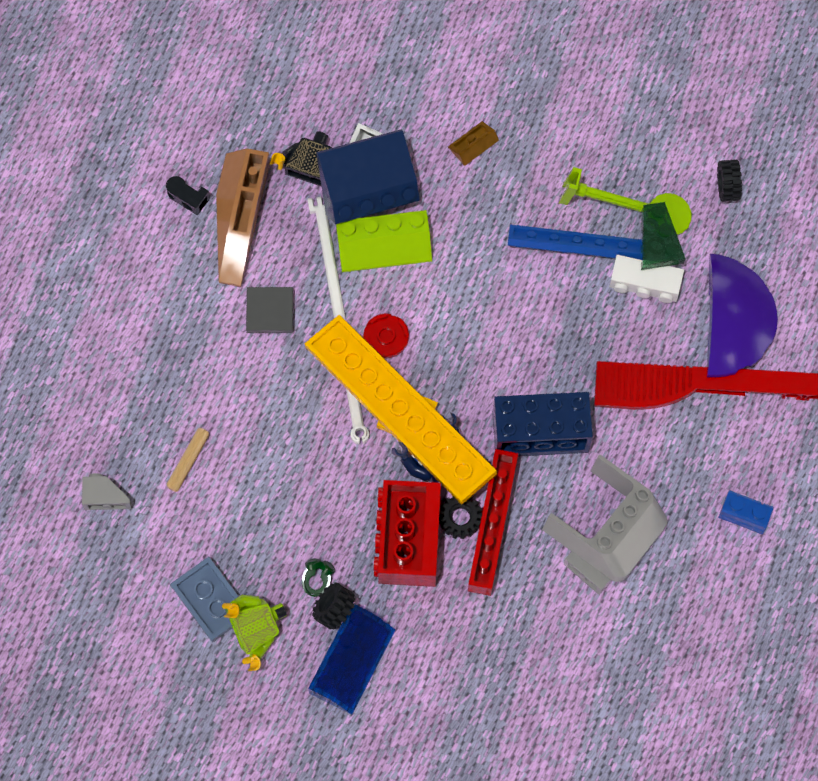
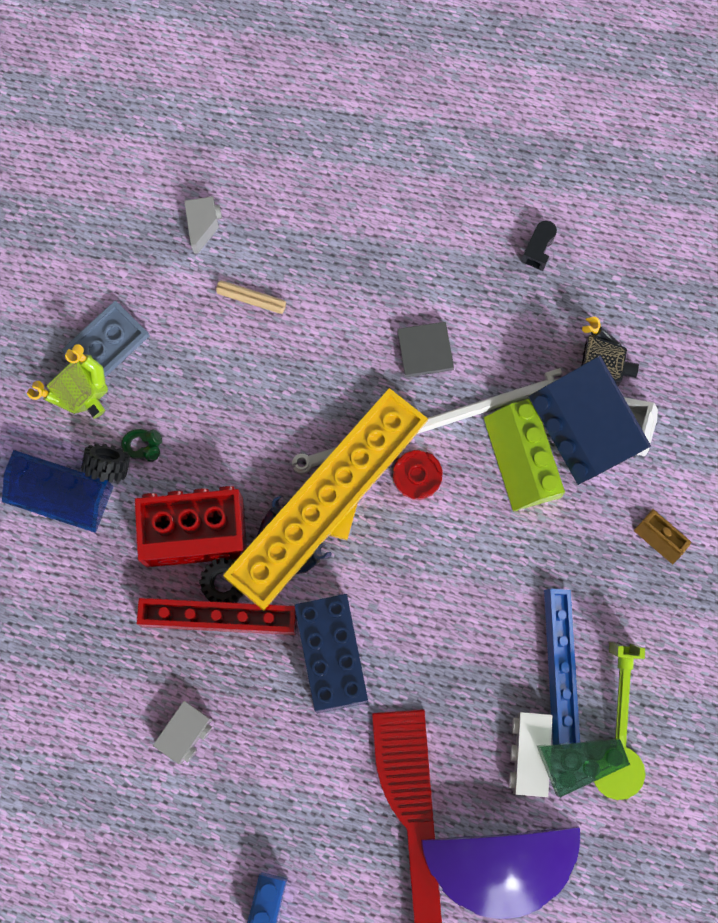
camera: 85 degrees right, 5 degrees up
(238, 209) = (531, 300): medium nougat wedge -> none
(624, 535) = (220, 767): light grey windscreen -> none
(729, 180) = (672, 840): black tyre -> none

